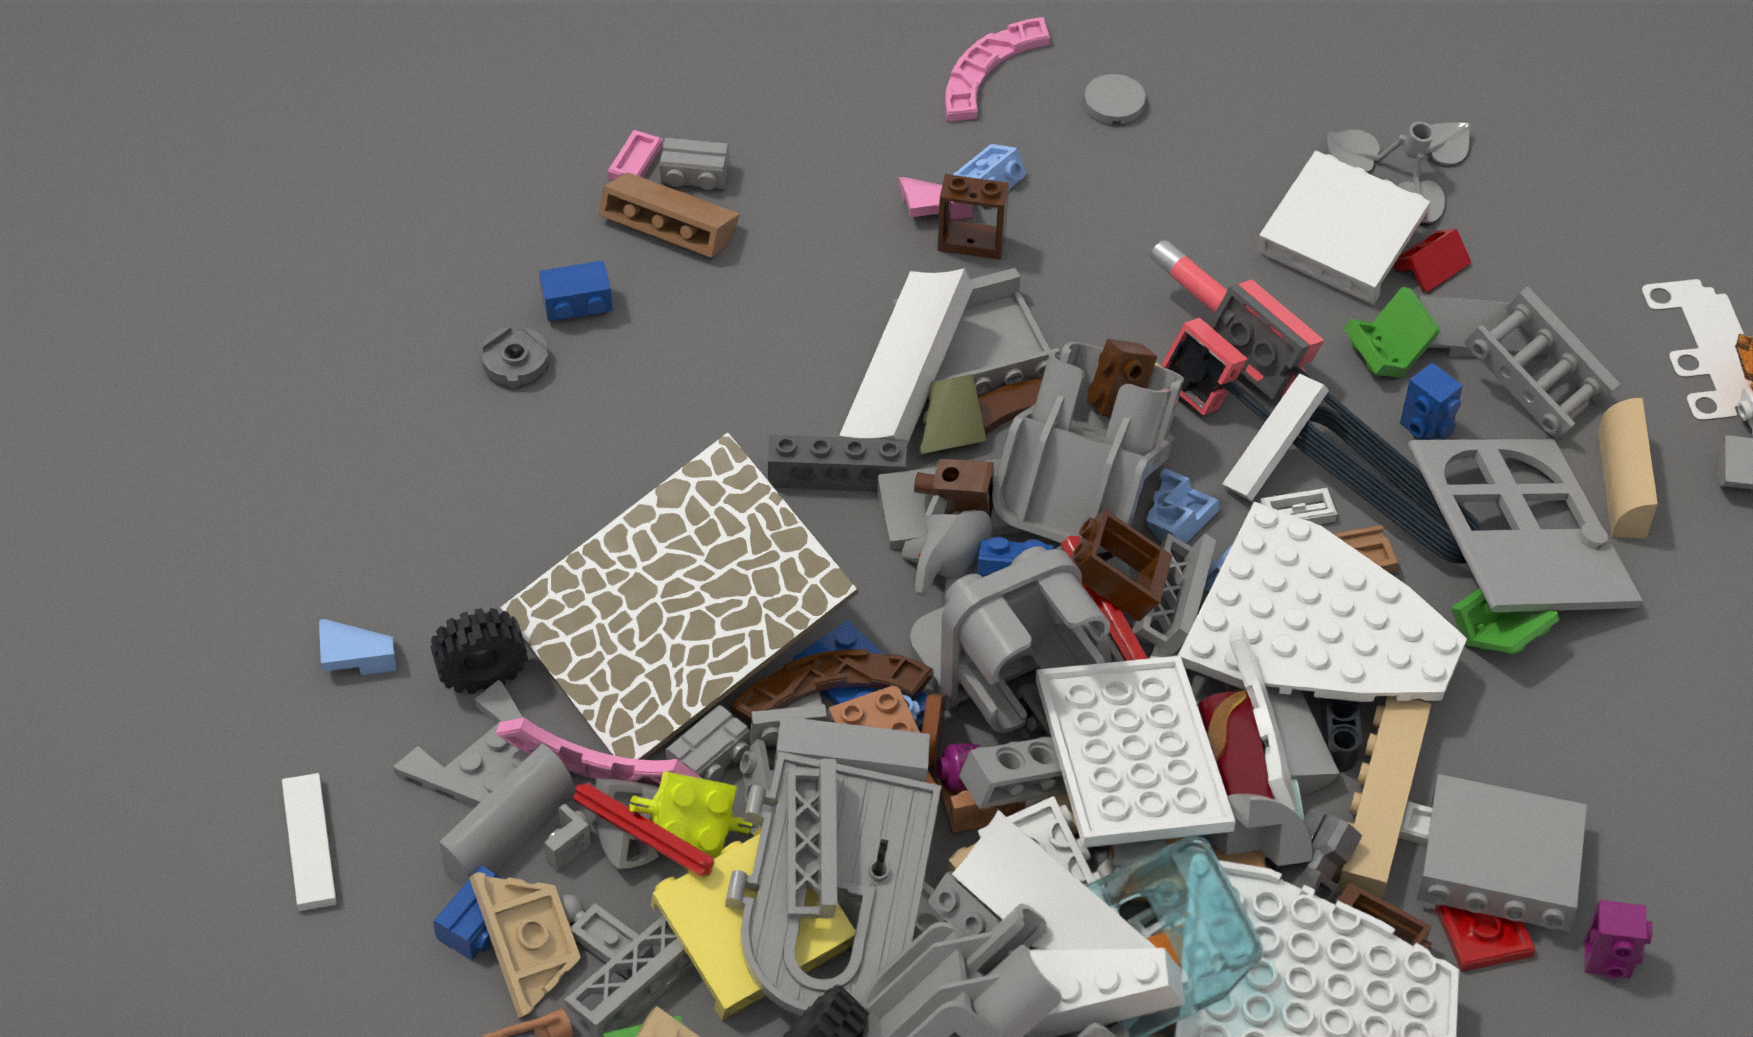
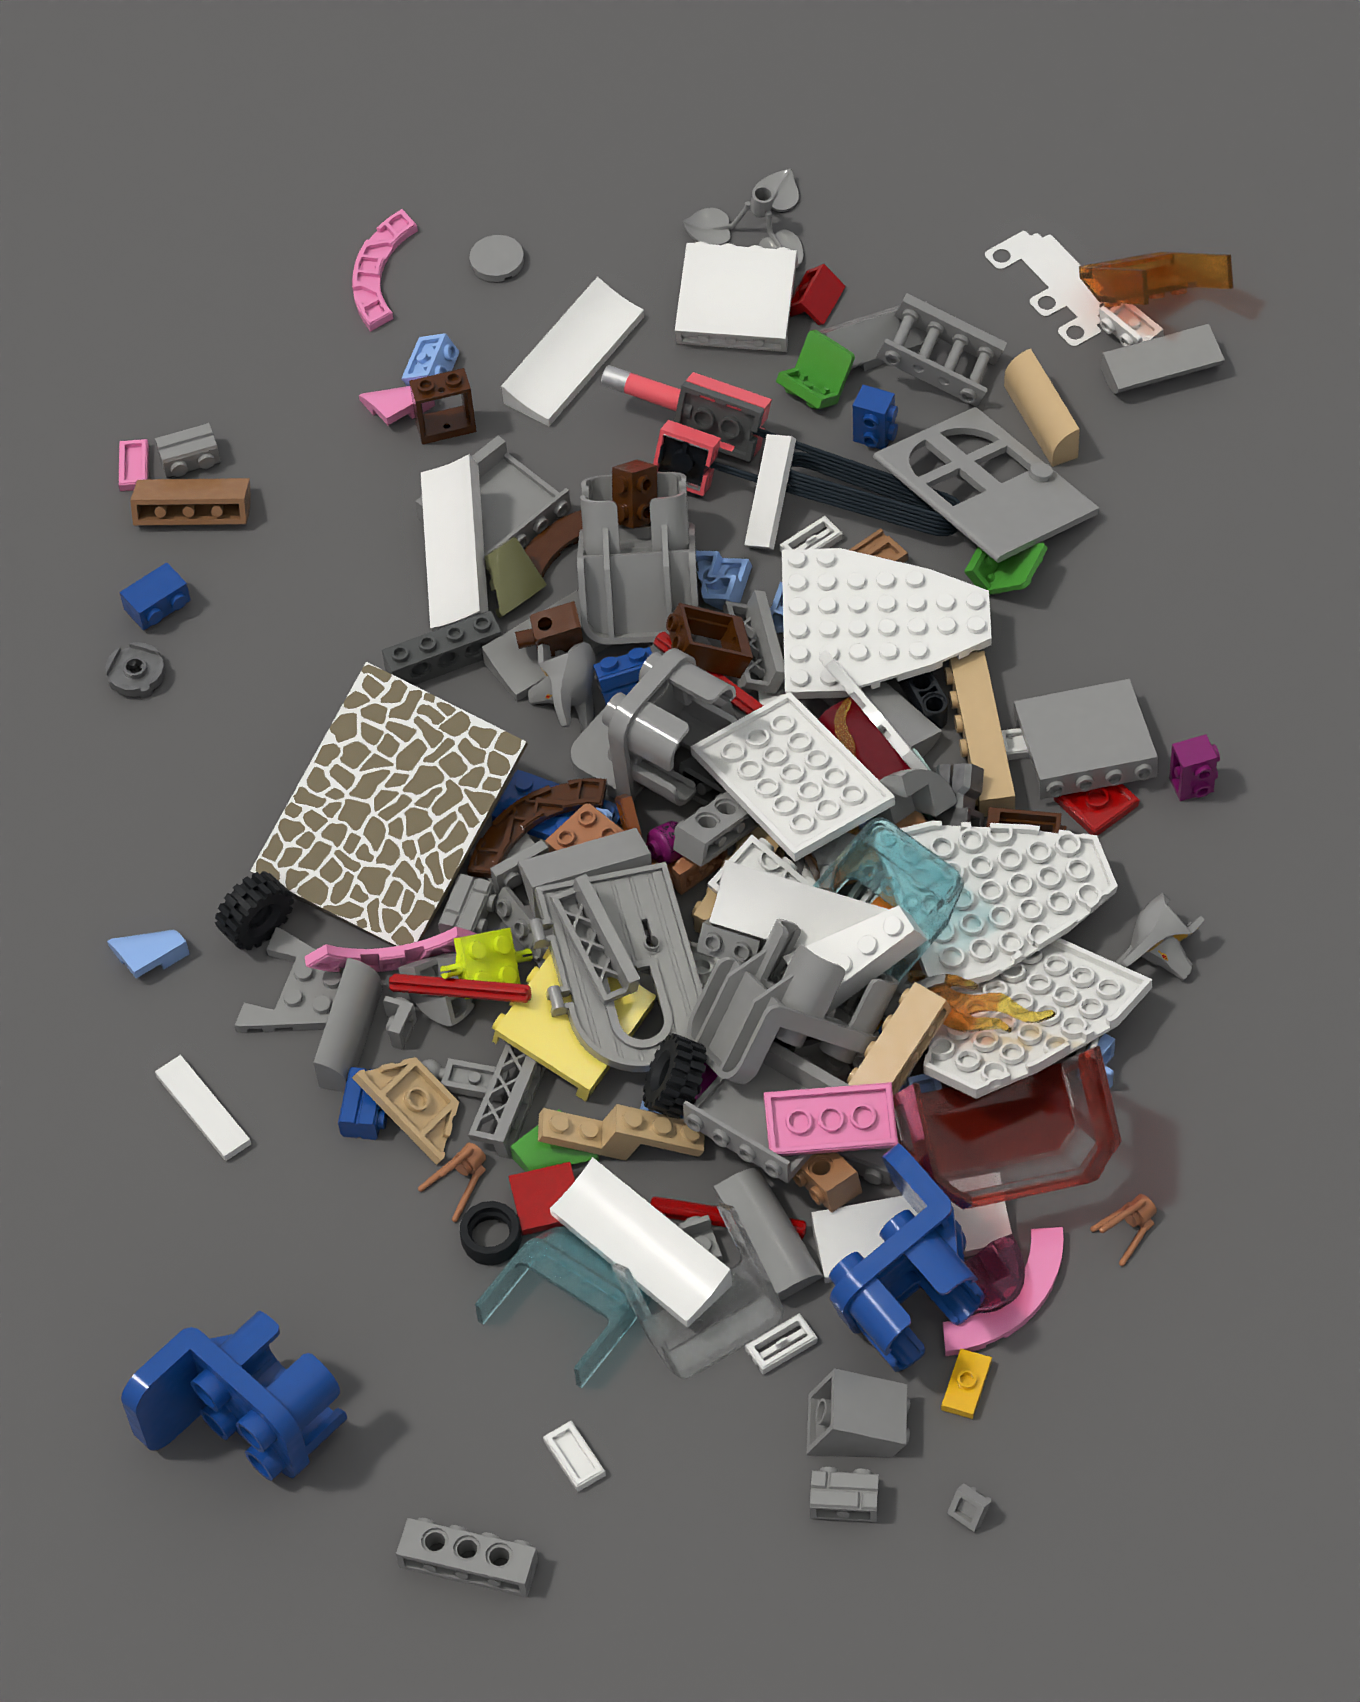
camera: 20 degrees left, 5 degrees up
(1139, 216) = (571, 353): none -> white arch

